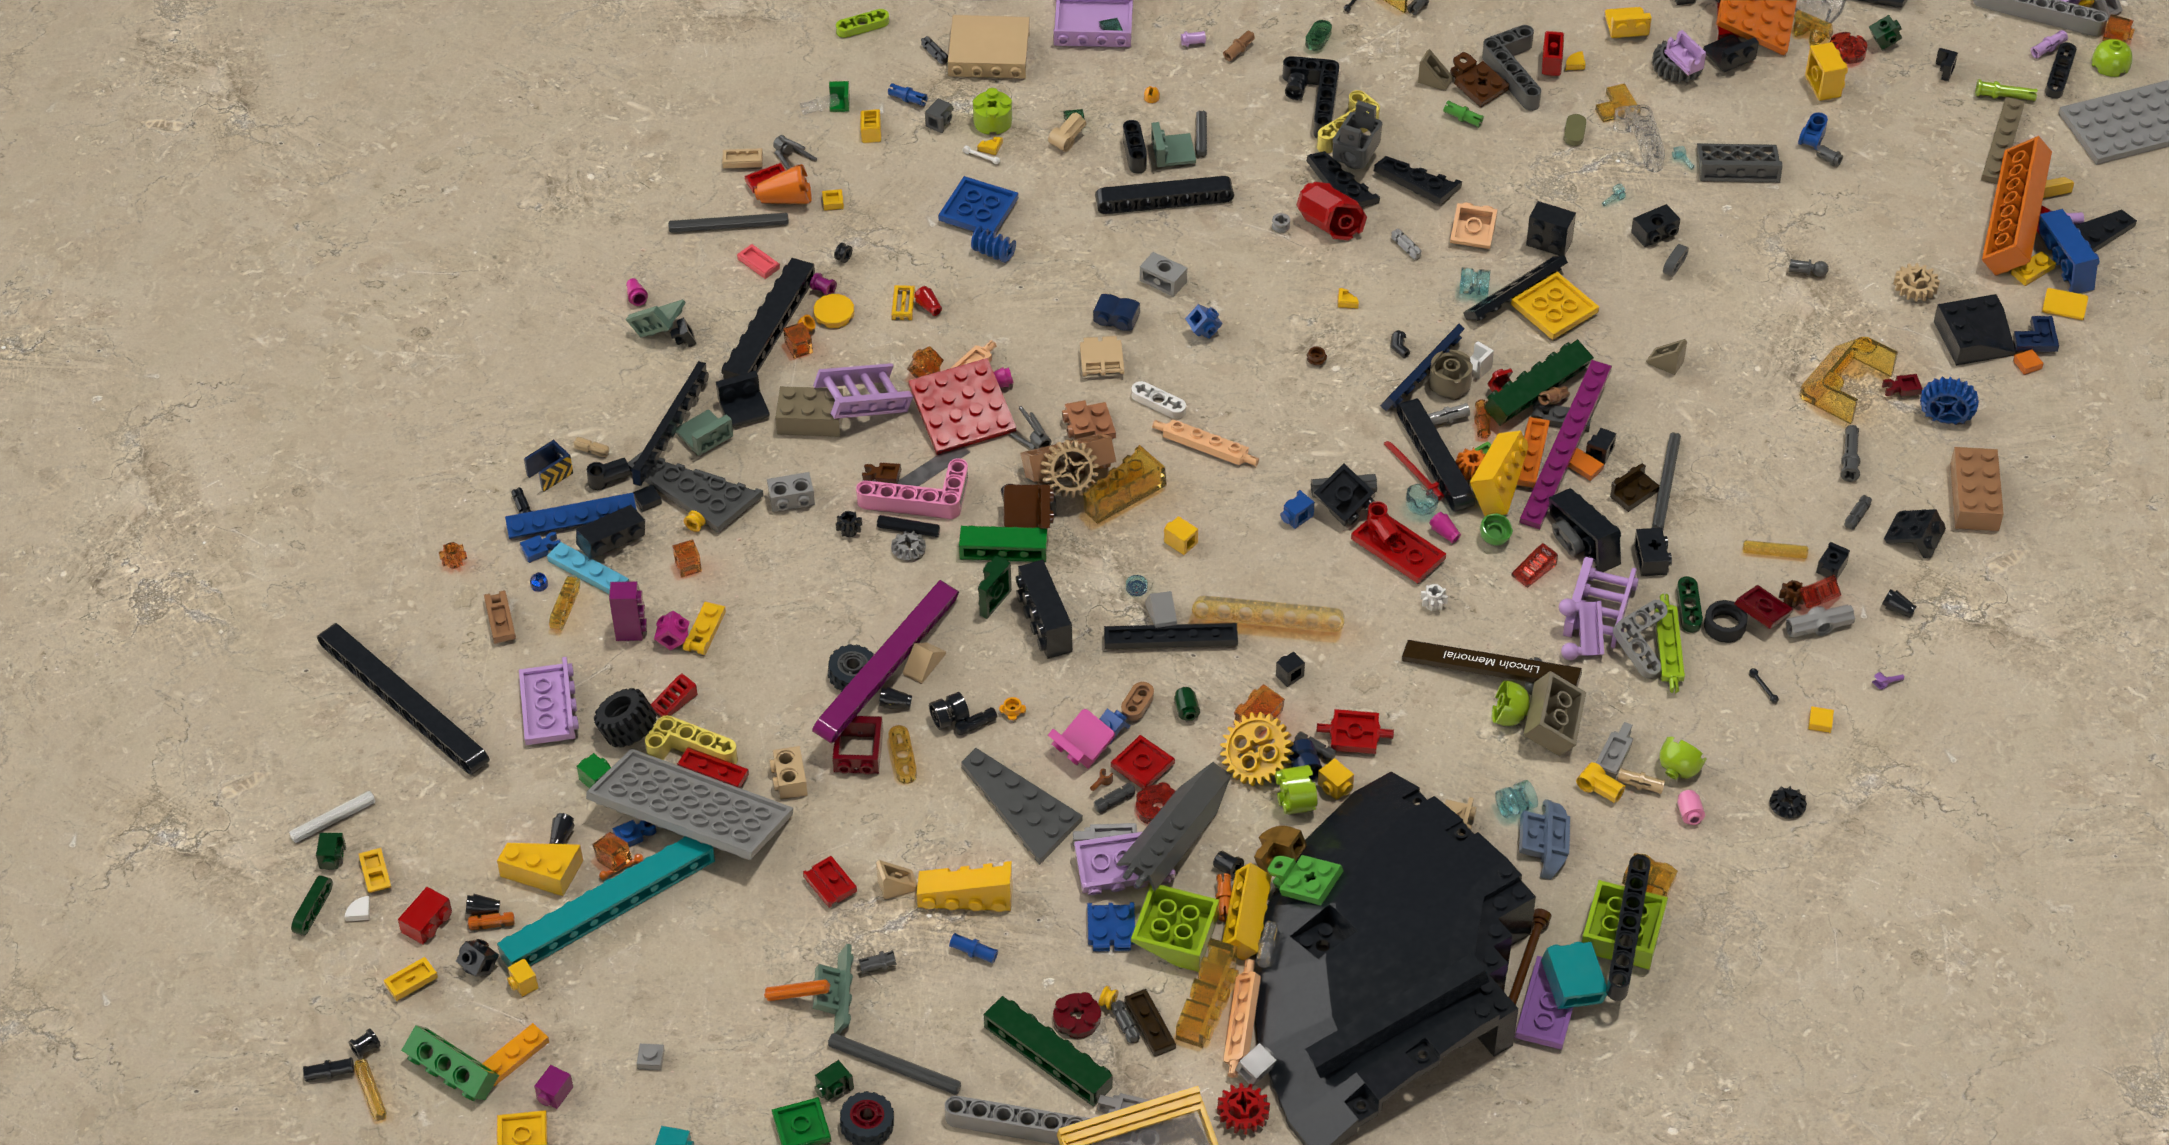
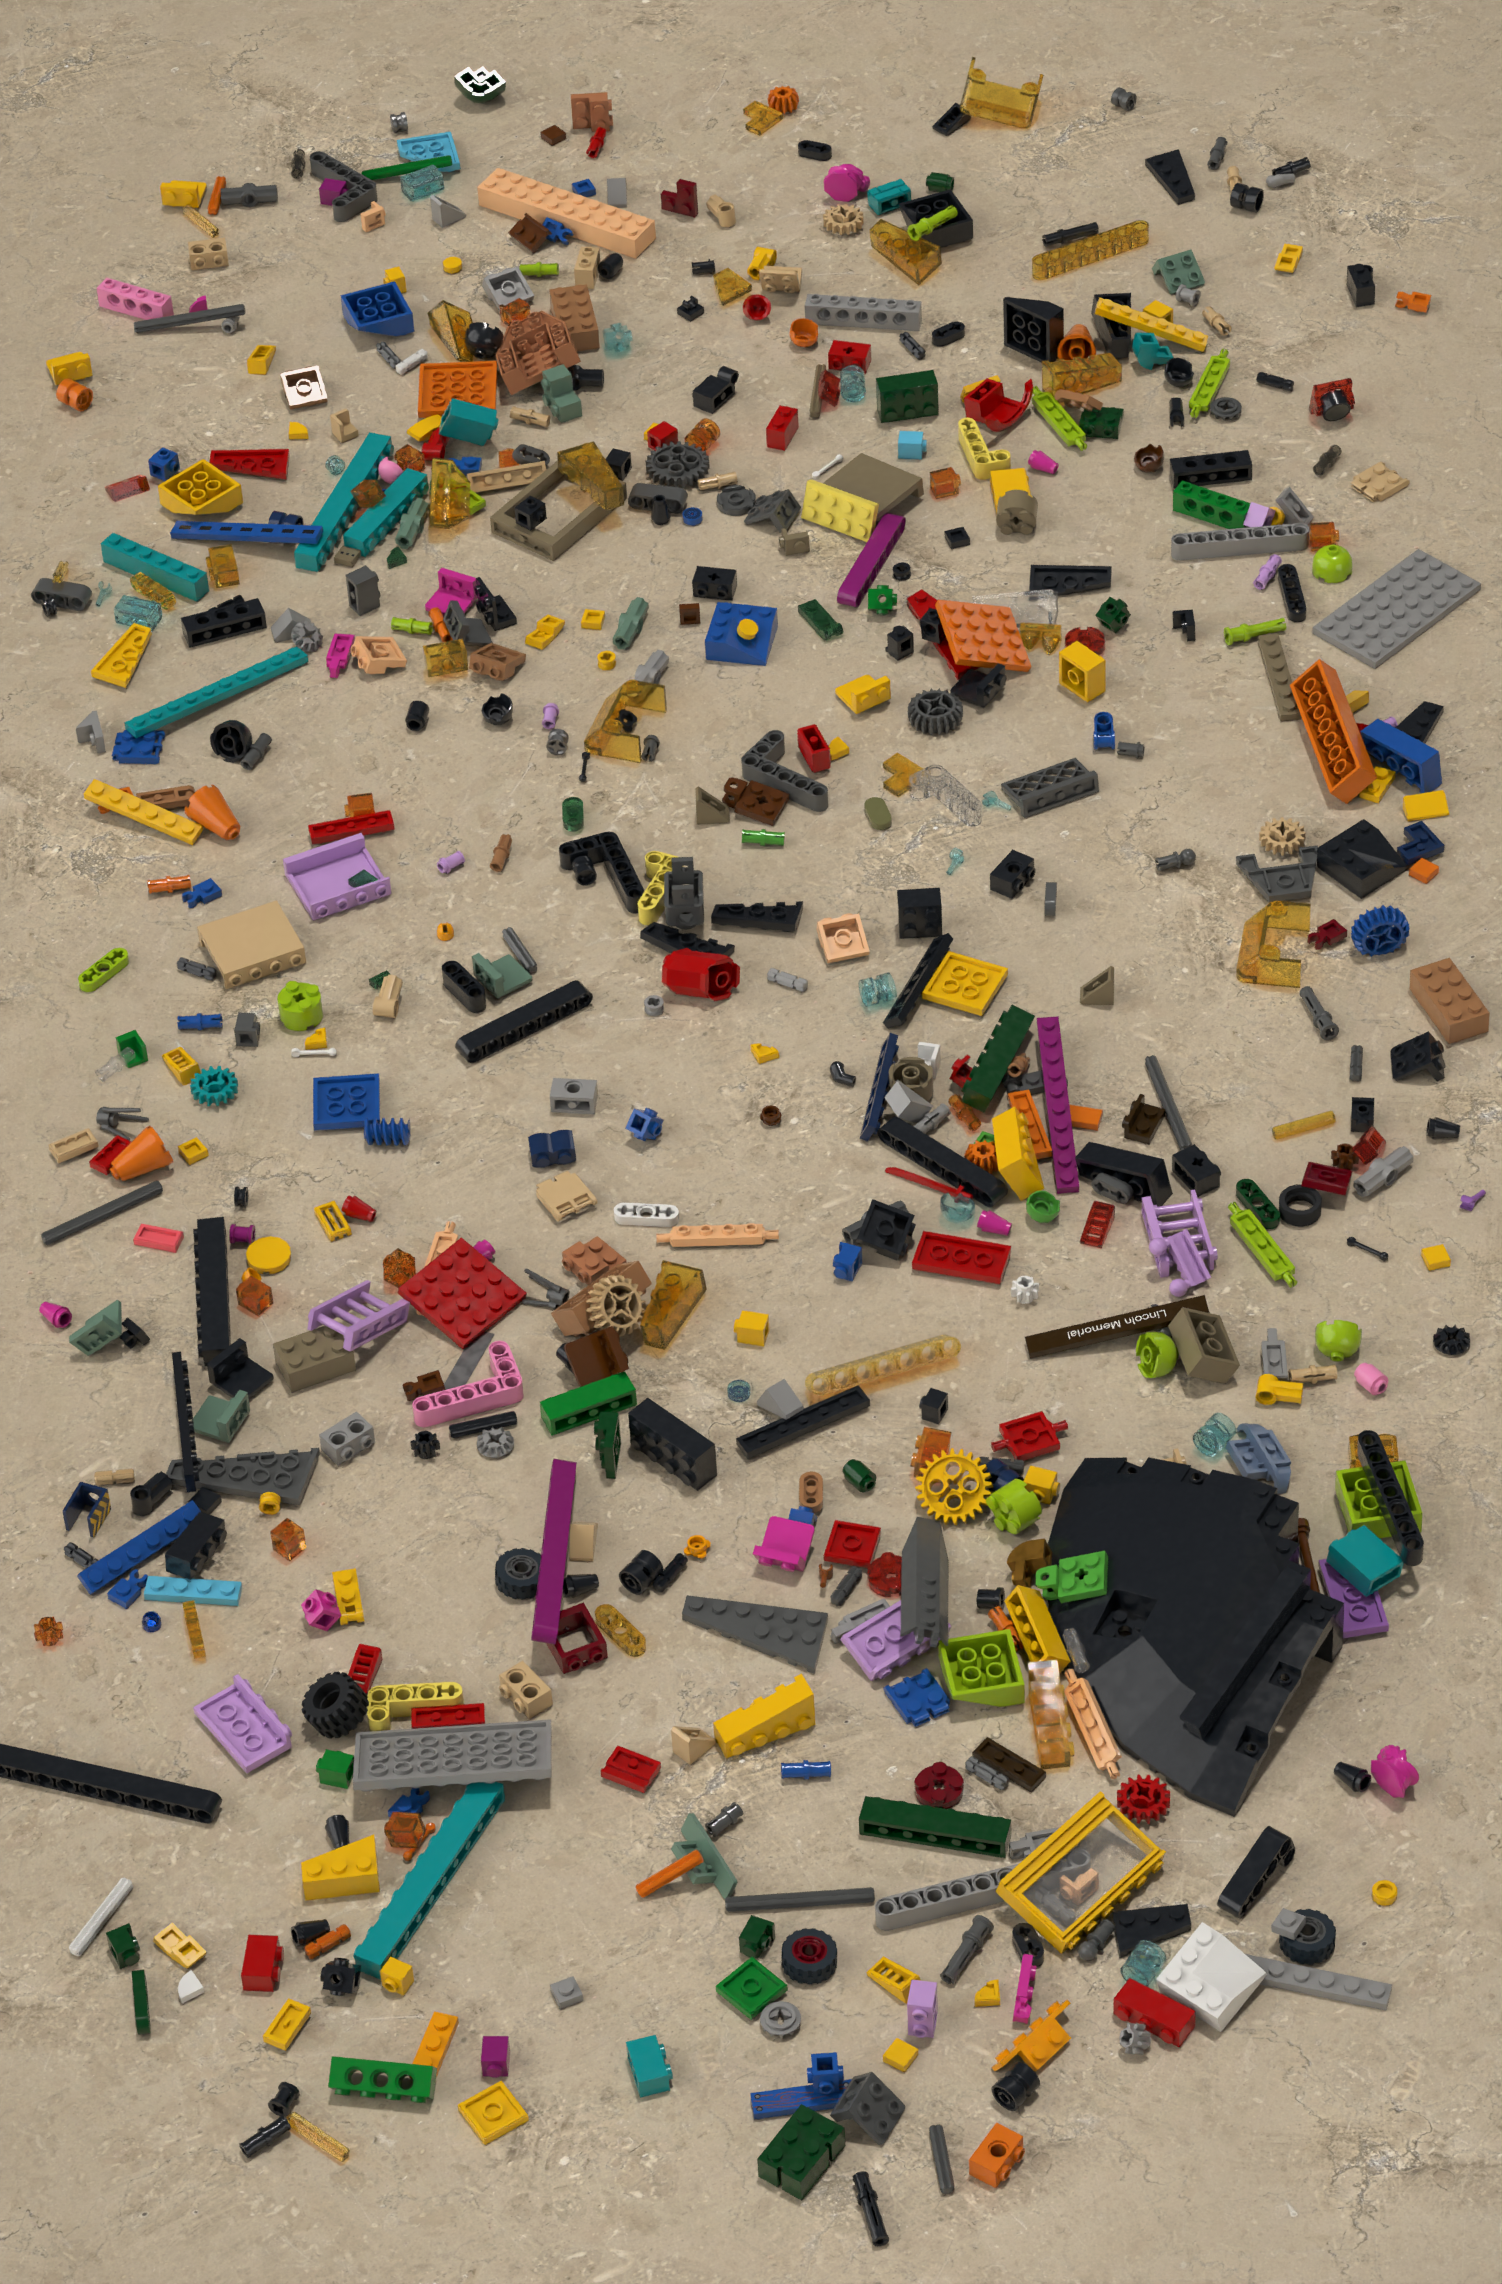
camera: 25 degrees left, 5 degrees down
(499, 617) = (136, 1668): medium nougat plate -> none
(627, 611) = (270, 1607): magenta wedge -> none
(882, 152) = (214, 1086): none -> teal gear
(1108, 997) = (959, 1758): yellow bush -> none
(1256, 1064) = (1134, 1755): light grey brick -> none
(1382, 523) = (933, 1239): red piece -> none
(1433, 391) = (907, 1103): none -> light grey slope
(1601, 445) = (1090, 1092): black brick -> none
(1634, 631) = (1227, 1245): light grey beam -> none
(1686, 53) = (944, 701): lavender hinge -> none
(1895, 323) = (1282, 881): none -> dark grey wing

